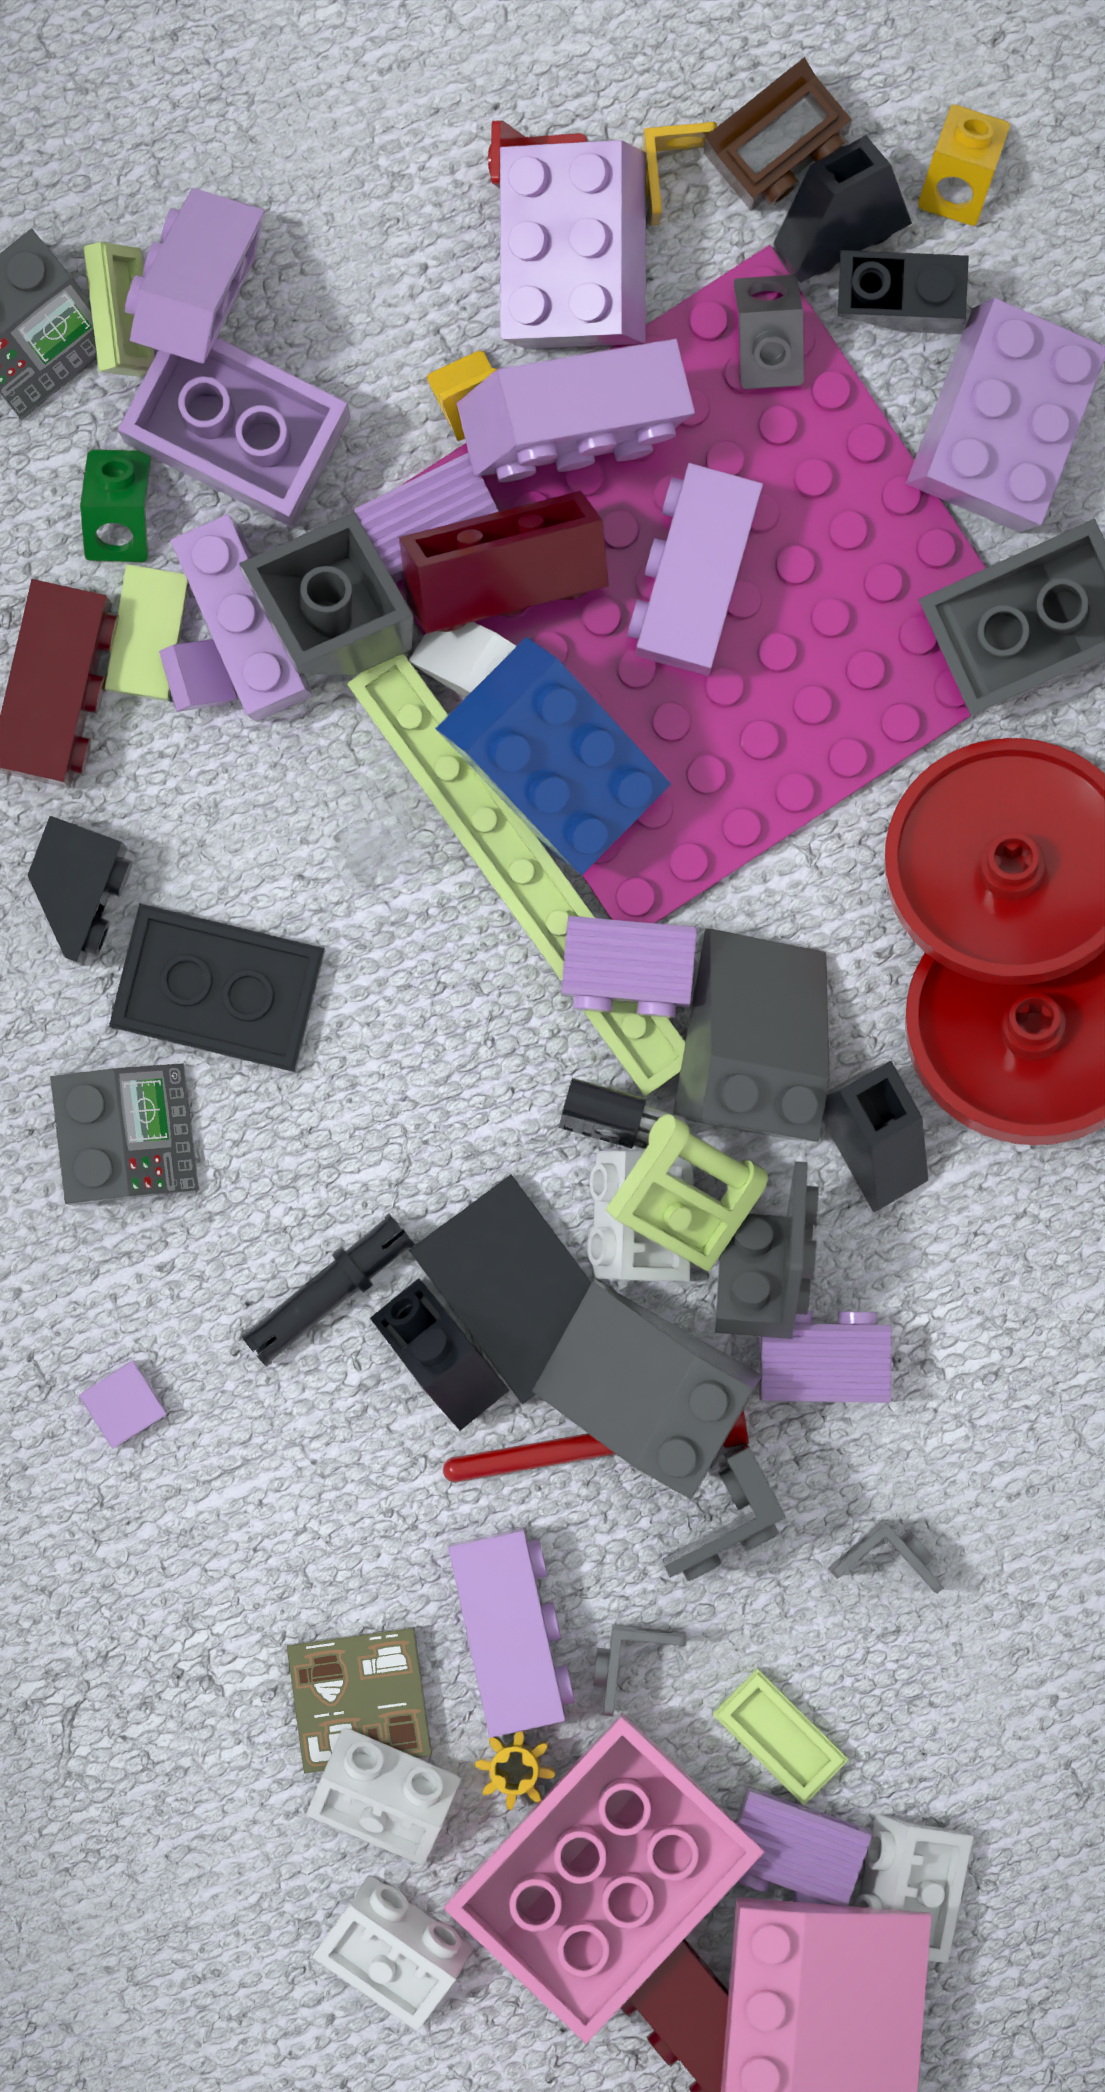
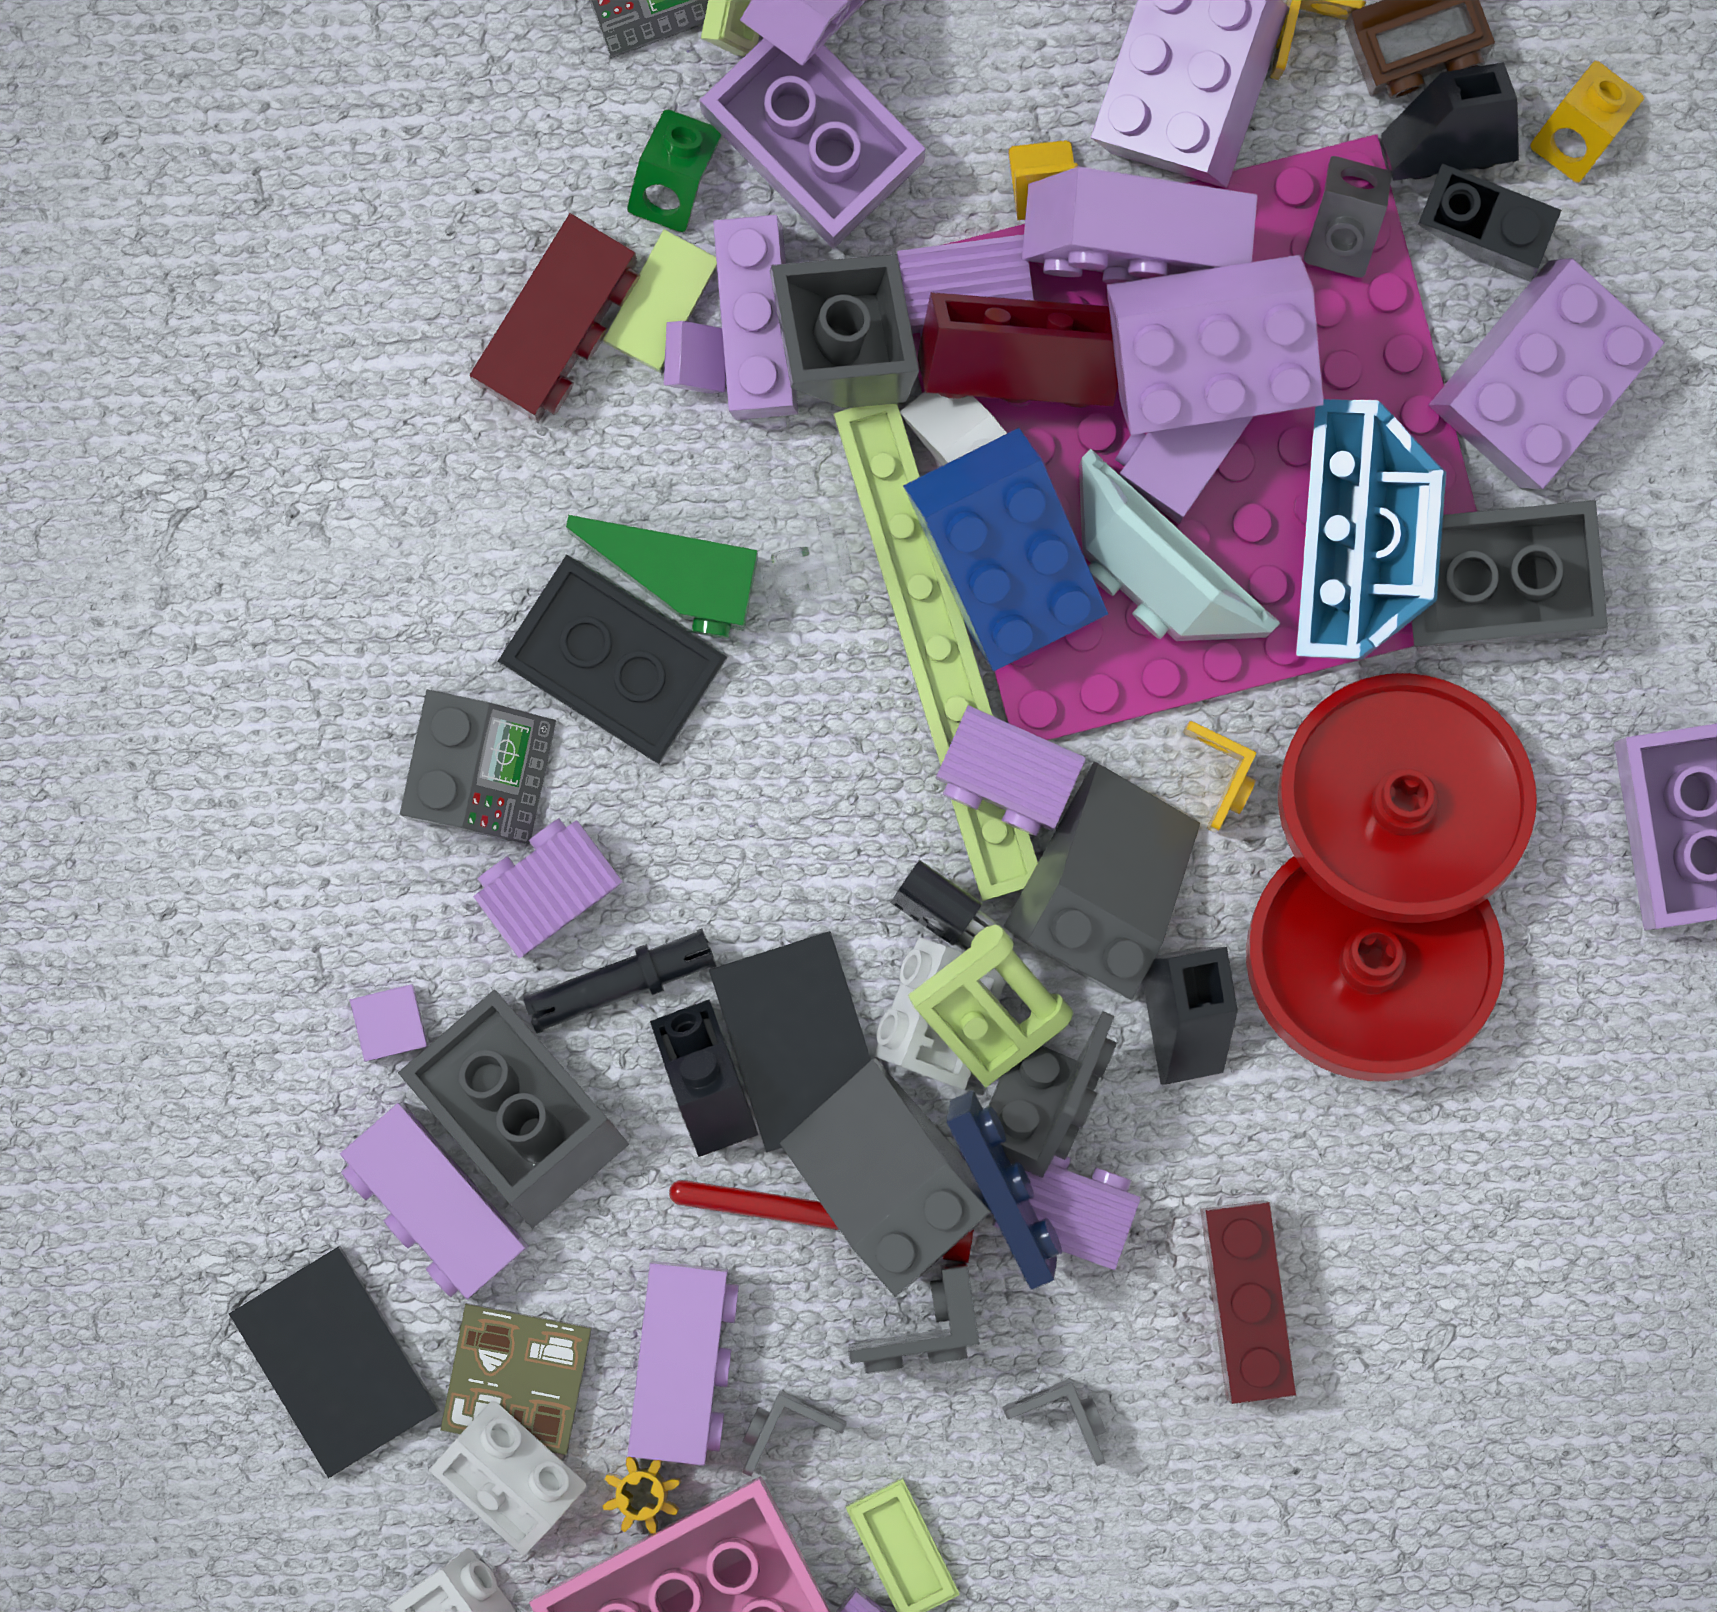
camera: 10 degrees right, 0 degrees up
(73, 882) = (510, 513): black slope -> none
(181, 1743) = (334, 1361): none -> black tile
(221, 1560) = (431, 1202): none -> lavender brick
(228, 1224) = (546, 887): none -> lavender brick
(262, 884) = (685, 574): none -> green slope
(268, 1445) = (513, 1108): none -> dark grey slope
(685, 494) = (1215, 344): none -> lavender brick
(703, 722) = (1158, 565): none -> light aqua wedge
(759, 1361) = (1004, 1188): none -> dark blue plate
(851, 903) = (1239, 785): none -> yellow bracket
(889, 621) = (1367, 531): none -> dark azure wedge
(1026, 1389) = (1248, 1301): none -> dark red brick

